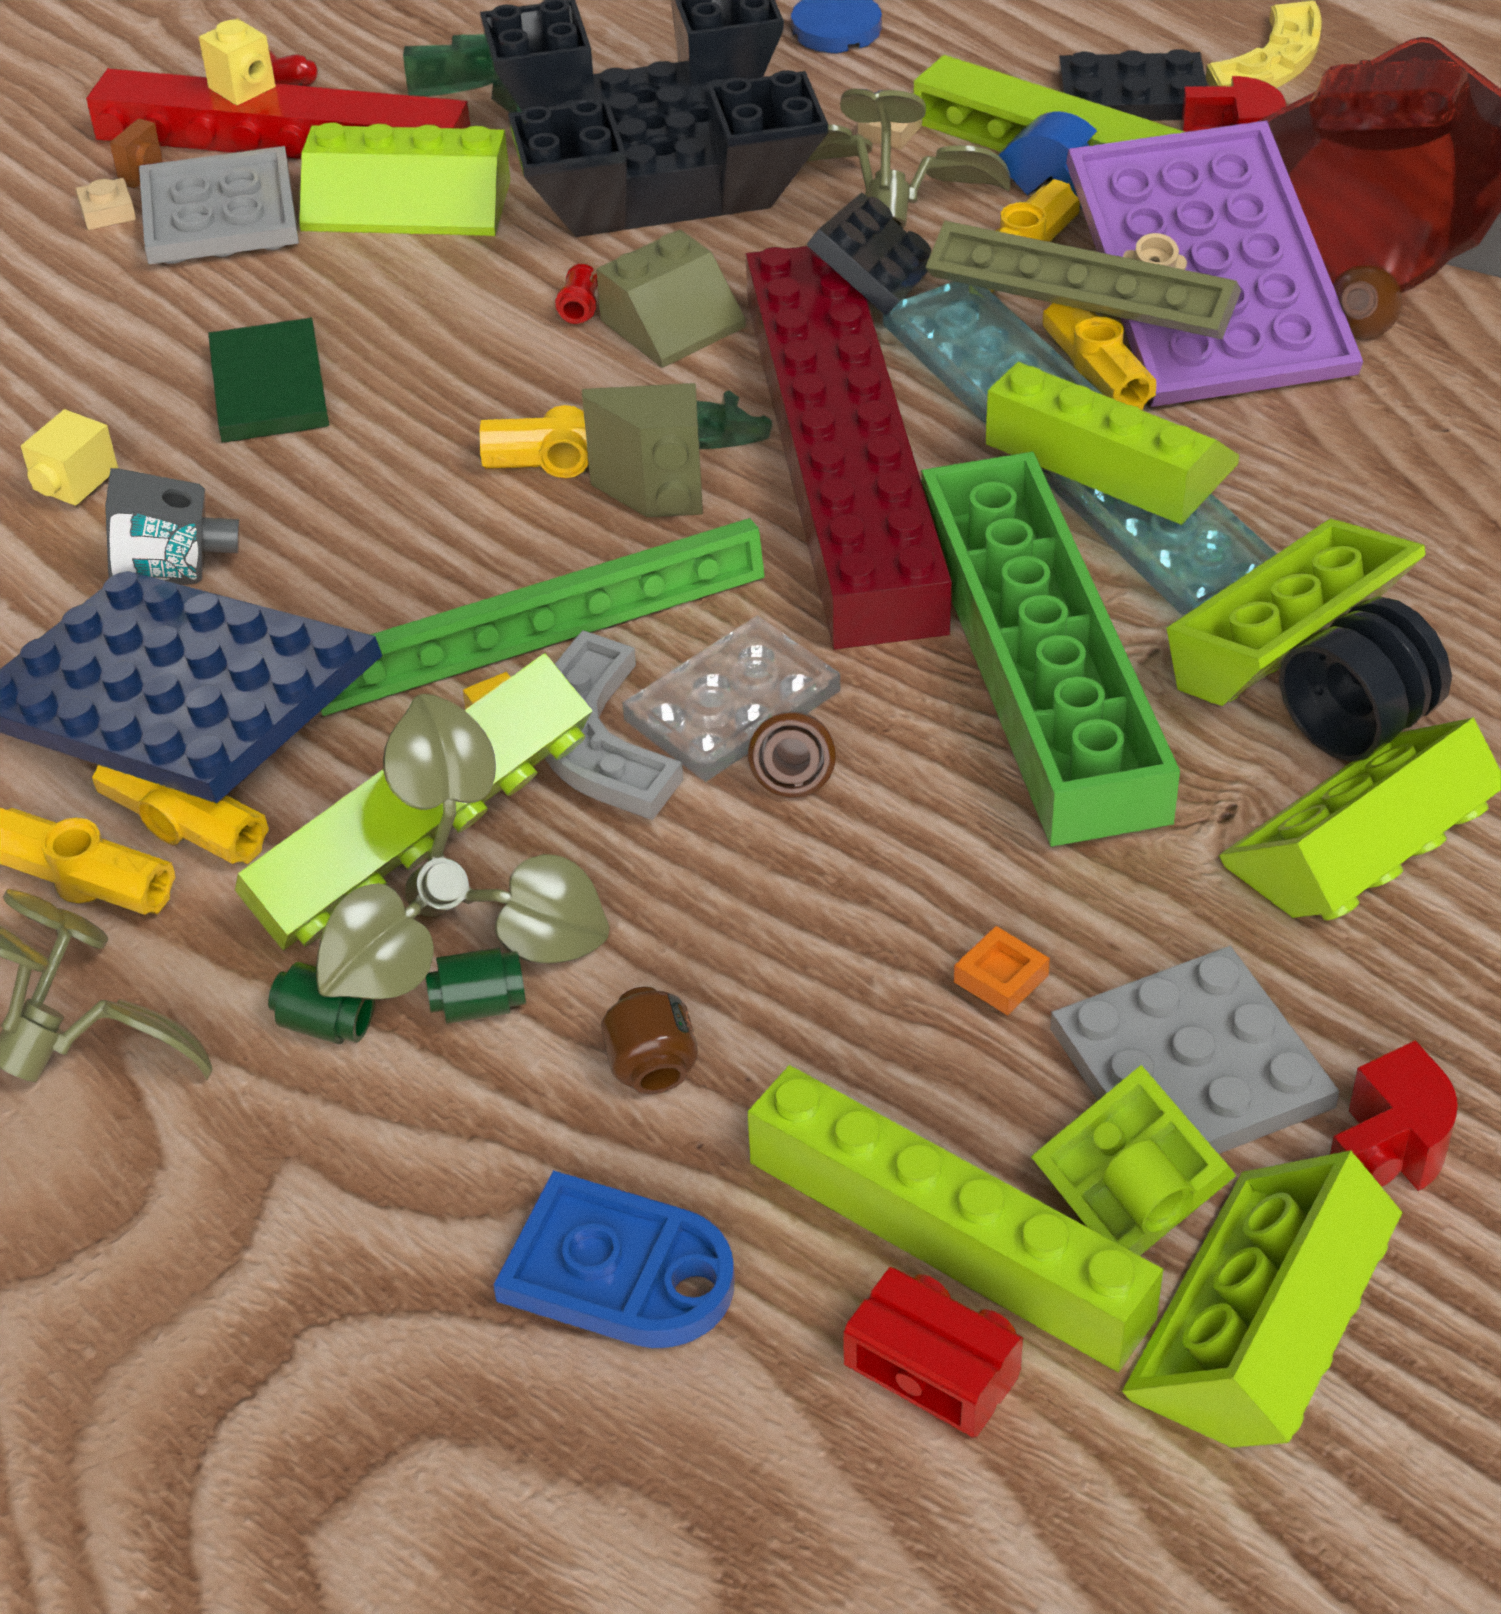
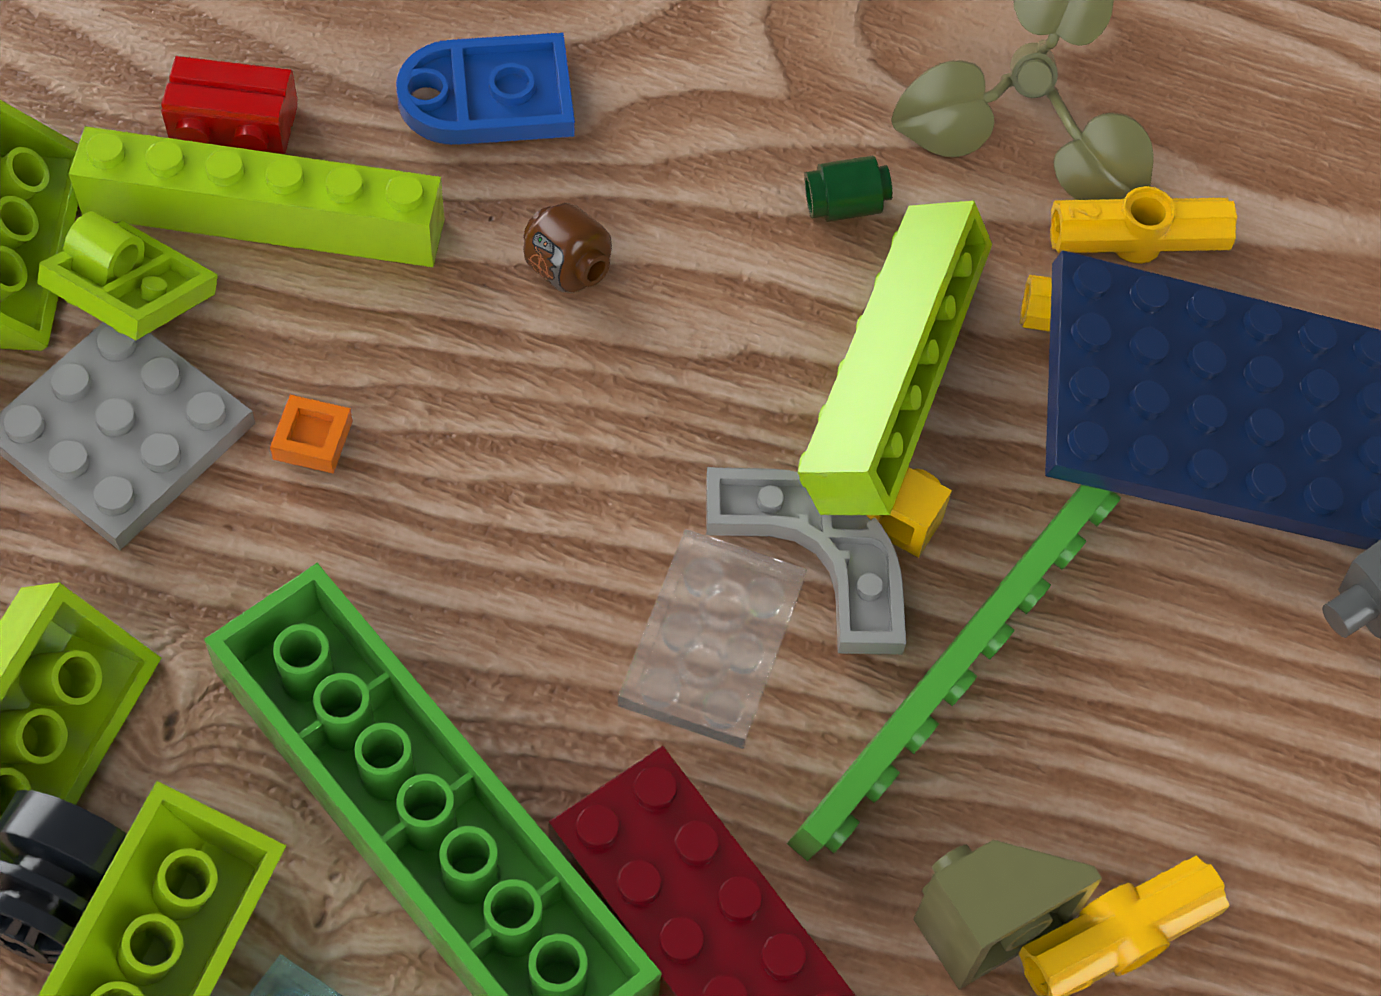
camera: 145 degrees right, 15 degrees up
(370, 938) = (853, 265): olive plant -> none
(476, 985) = (738, 247): dark green brick -> none
(792, 754) = (613, 584): reddish brown brick -> none

